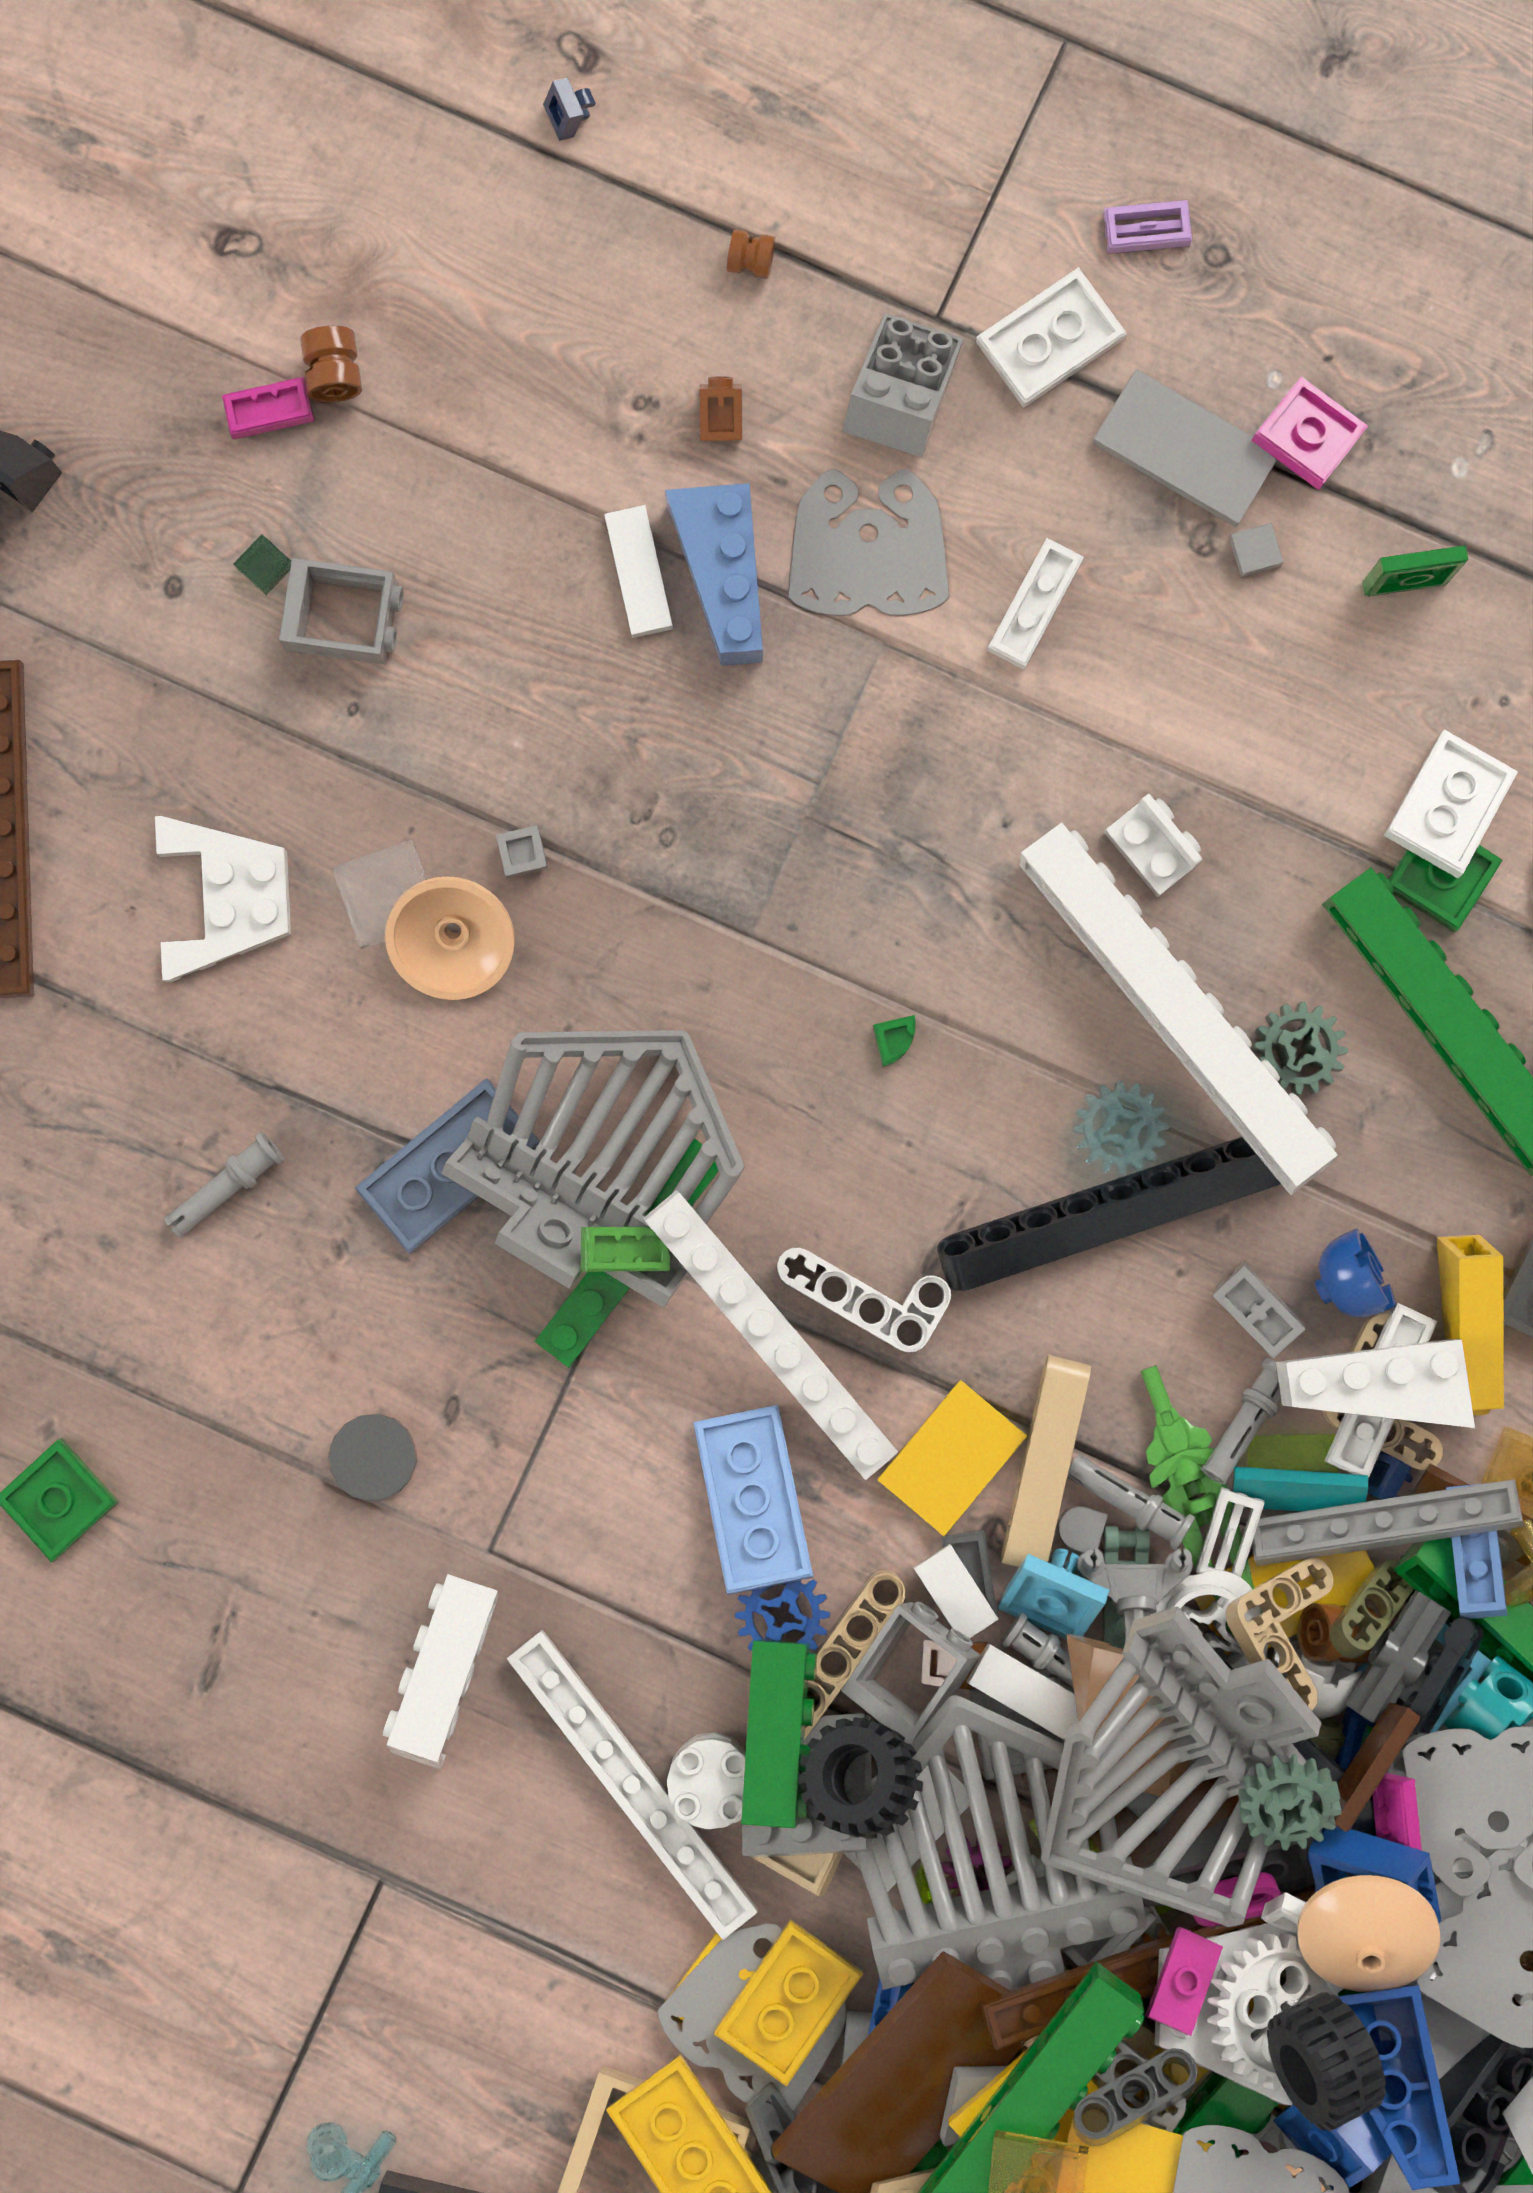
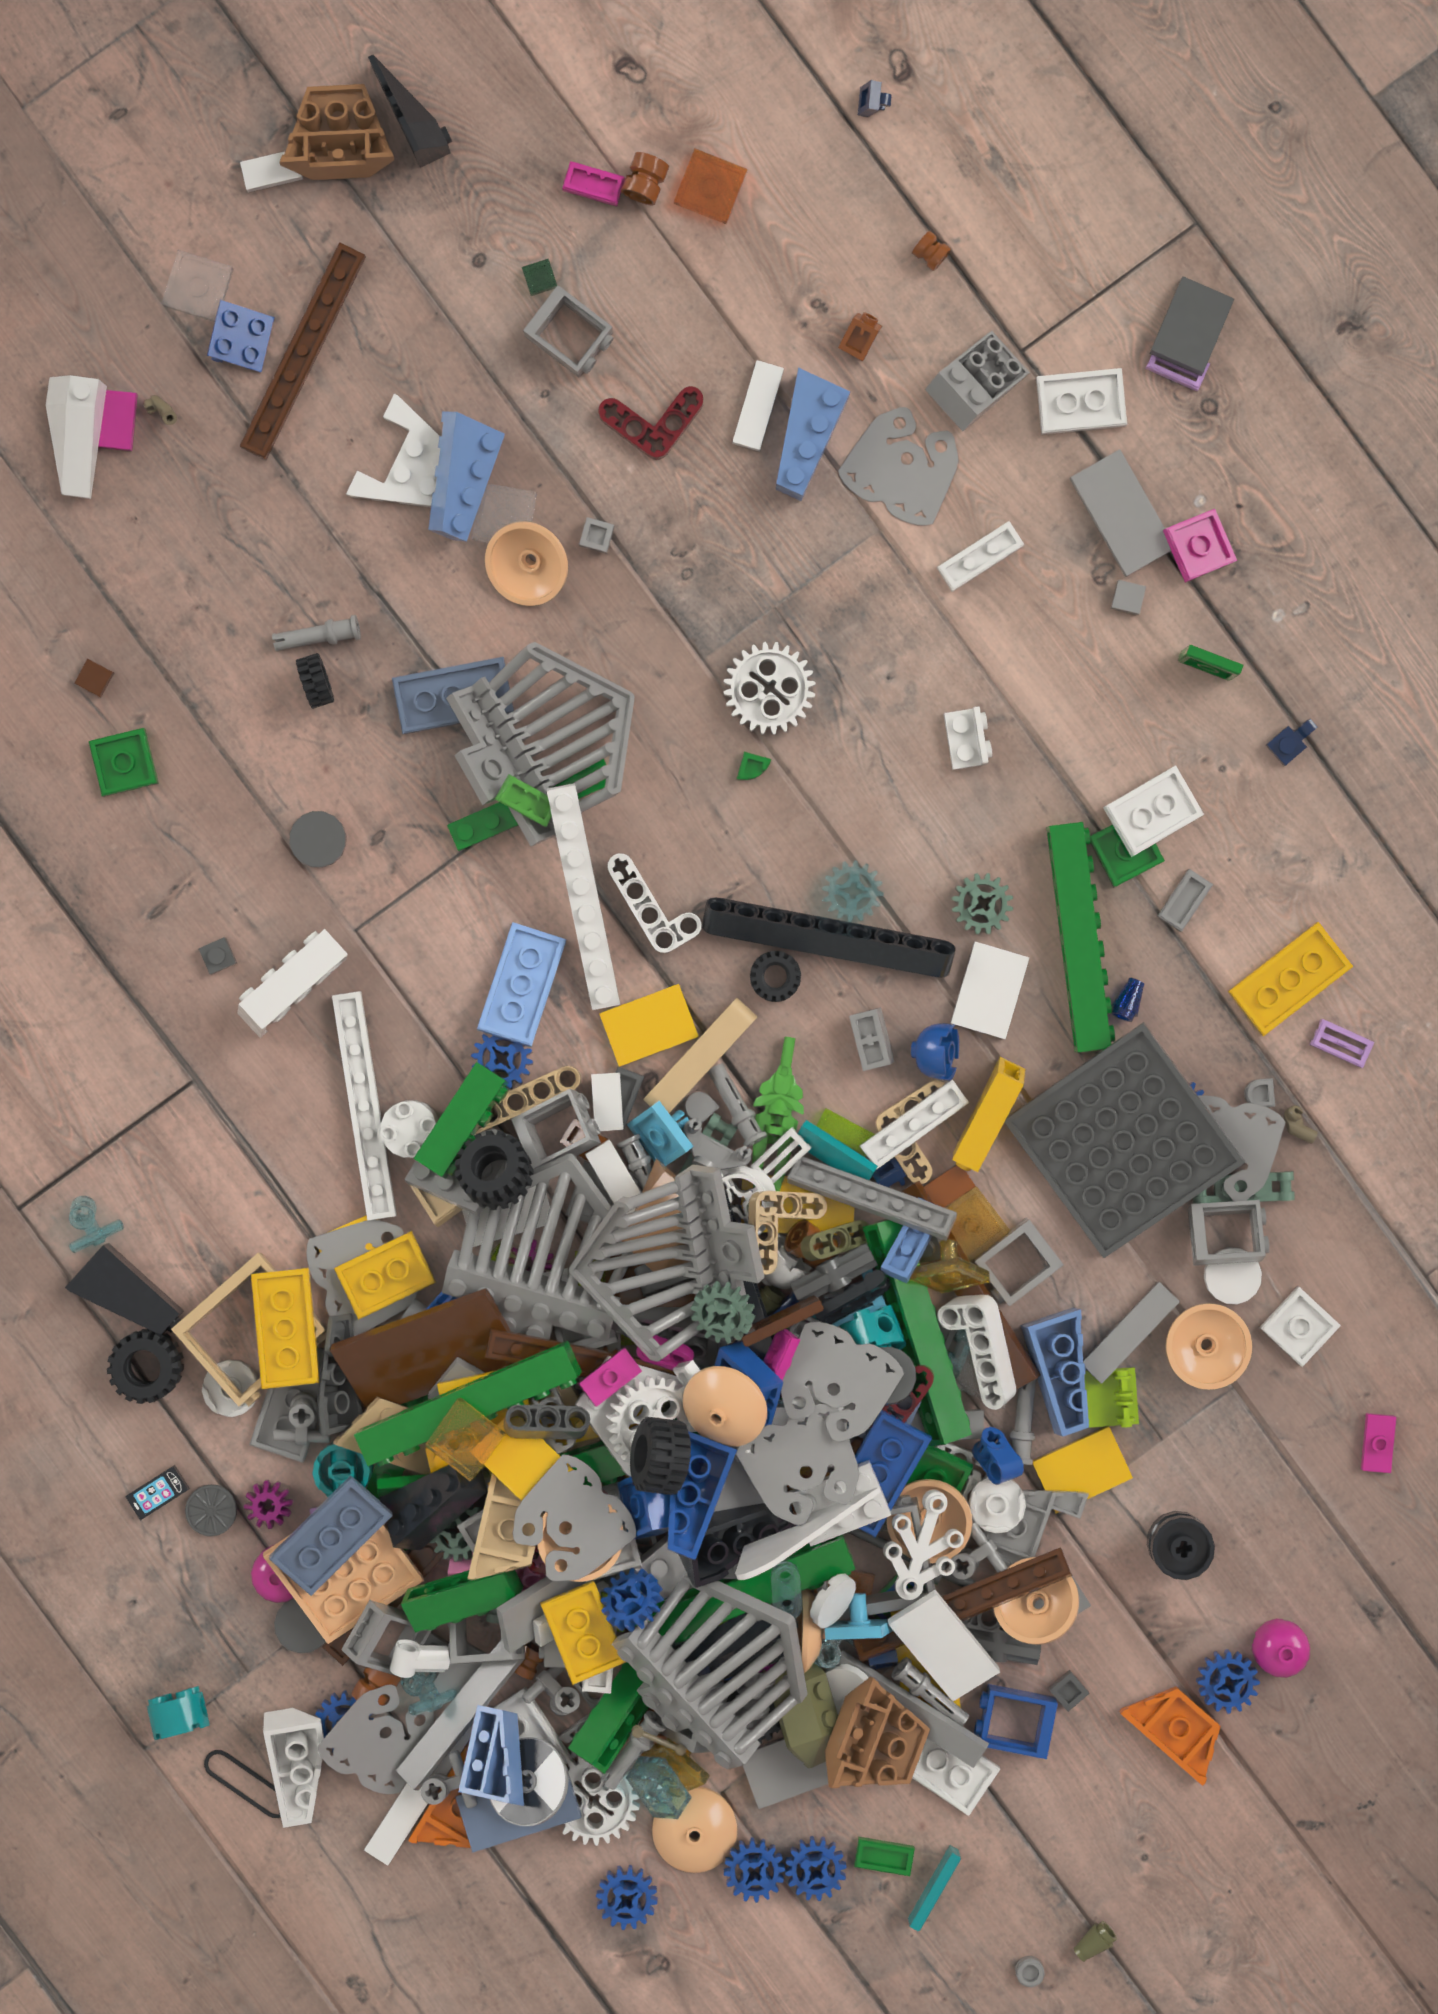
camera: 25 degrees right, 5 degrees up
(253, 1248) = (315, 680): none -> black tyre
(301, 868) = (462, 474): none -> medium blue wedge
(323, 1690) = (217, 955): none -> dark grey plate
(421, 330) = (710, 186): none -> clear orange tile
(529, 671) = (658, 431): none -> dark red beam
(865, 886) = (786, 668): none -> white gear
(1109, 1297) = (781, 959): none -> black tyre
(1137, 165) = (1191, 326): none -> dark grey tile
(1178, 1009) = (922, 839): white brick -> none
(1259, 1403) = (840, 1093): light grey pin -> none
(1377, 1157) = (989, 990): none -> white tile
(1394, 1382) = (919, 1120): white wedge -> none
(1472, 1450) = (949, 1186): none -> dark orange tile

